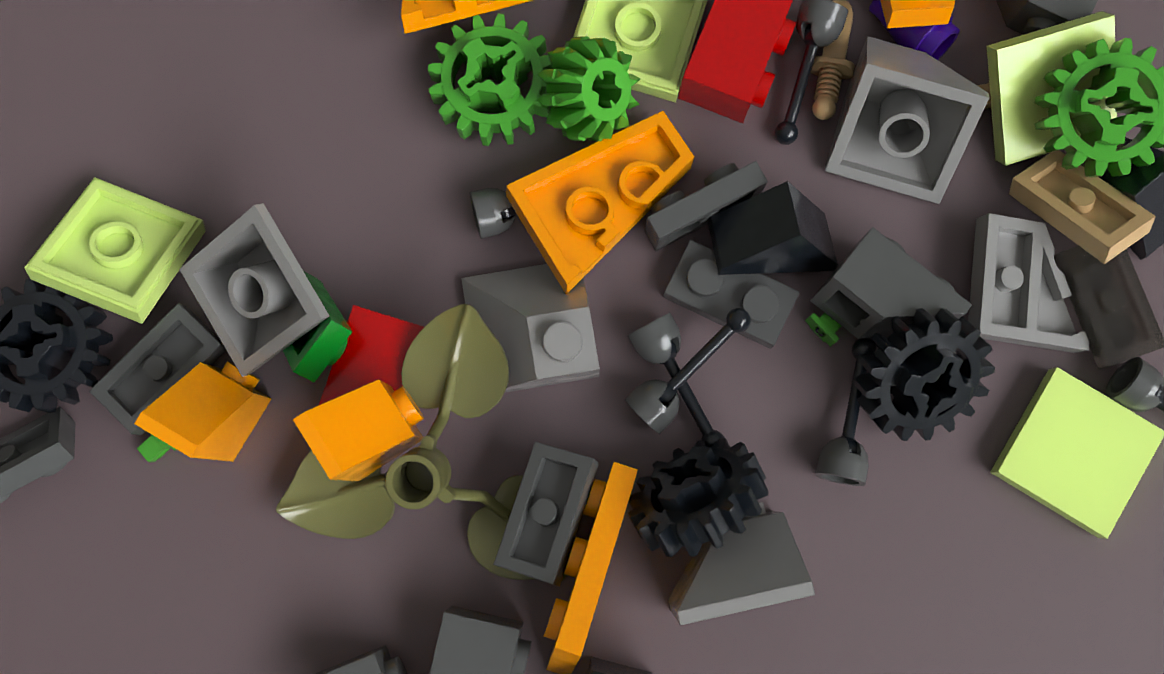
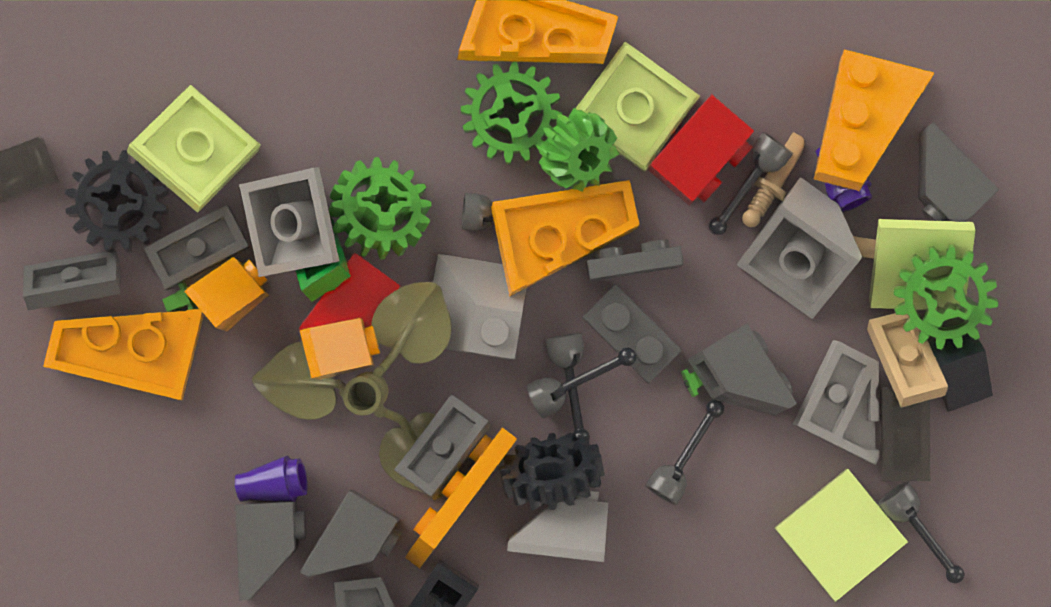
camera: 15 degrees right, 5 degrees up
(121, 526) = (131, 351): none -> light orange wing
(347, 631) = (274, 481): none -> dark purple cone
(364, 244) = (373, 213): none -> bright green gear
(772, 235) = (676, 303): black slope -> none
(924, 374) = (744, 441): black gear -> none

